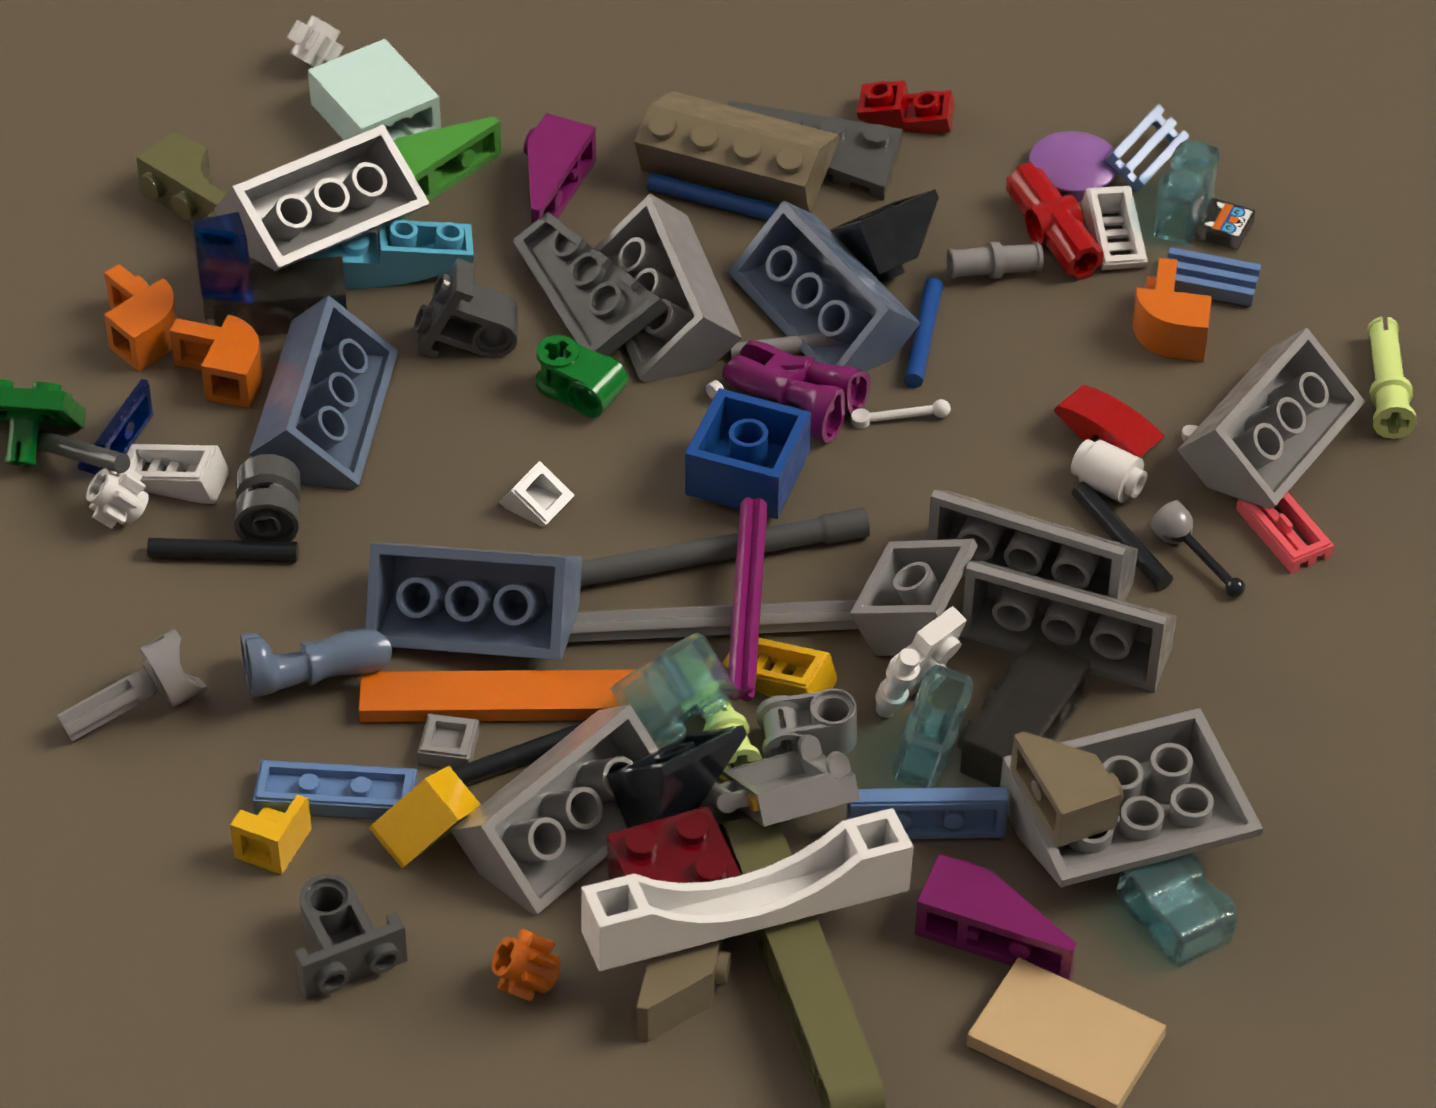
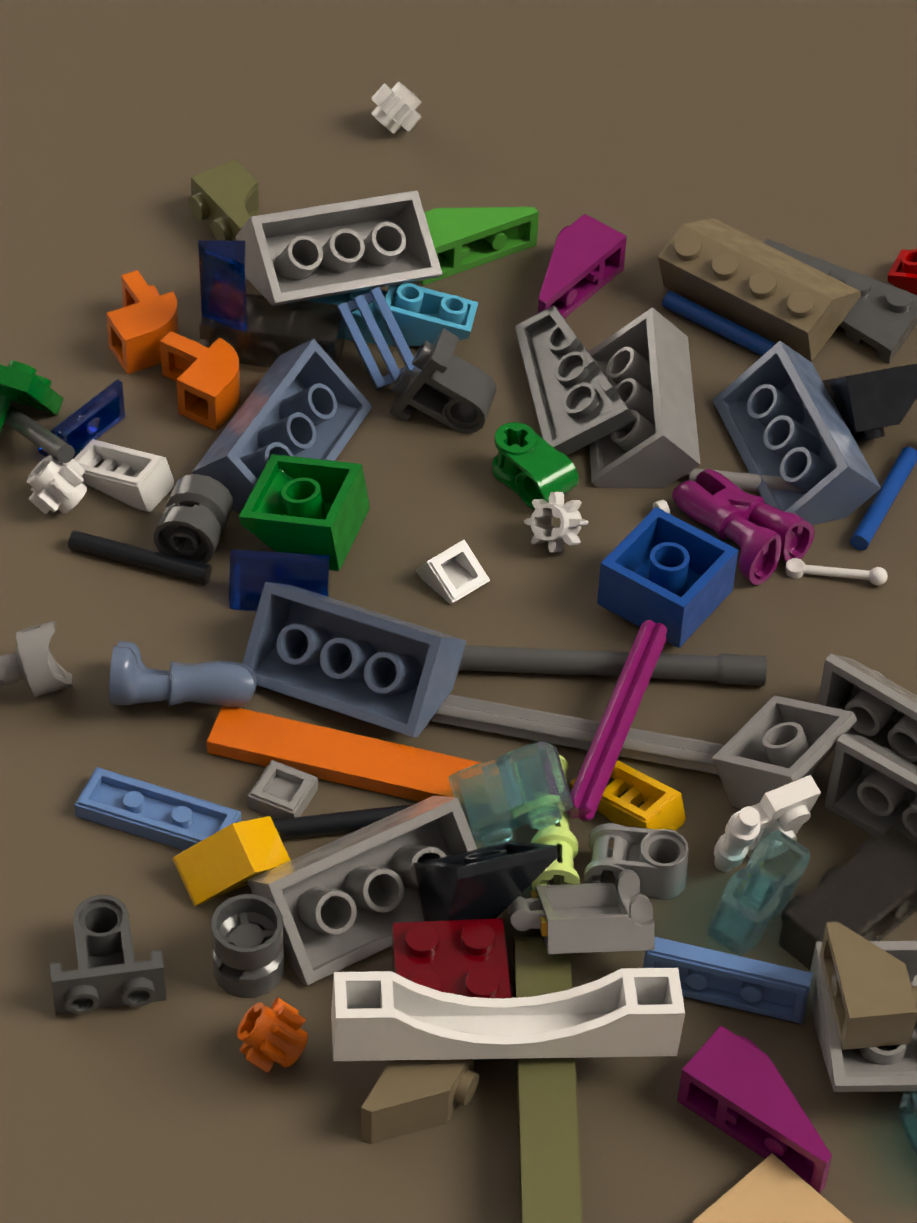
camera: 15 degrees right, 0 degrees up
(271, 836) = (79, 846): yellow panel -> none
(349, 538) = (253, 568): none -> clear blue slope
(372, 90) = (434, 160): light aqua brick -> none
(378, 465) = (308, 506): none -> green slope
(397, 268) = (361, 302): none -> medium blue tile
(473, 889) = (247, 945): none -> dark grey wheel
(621, 411) = (542, 522): none -> white gear

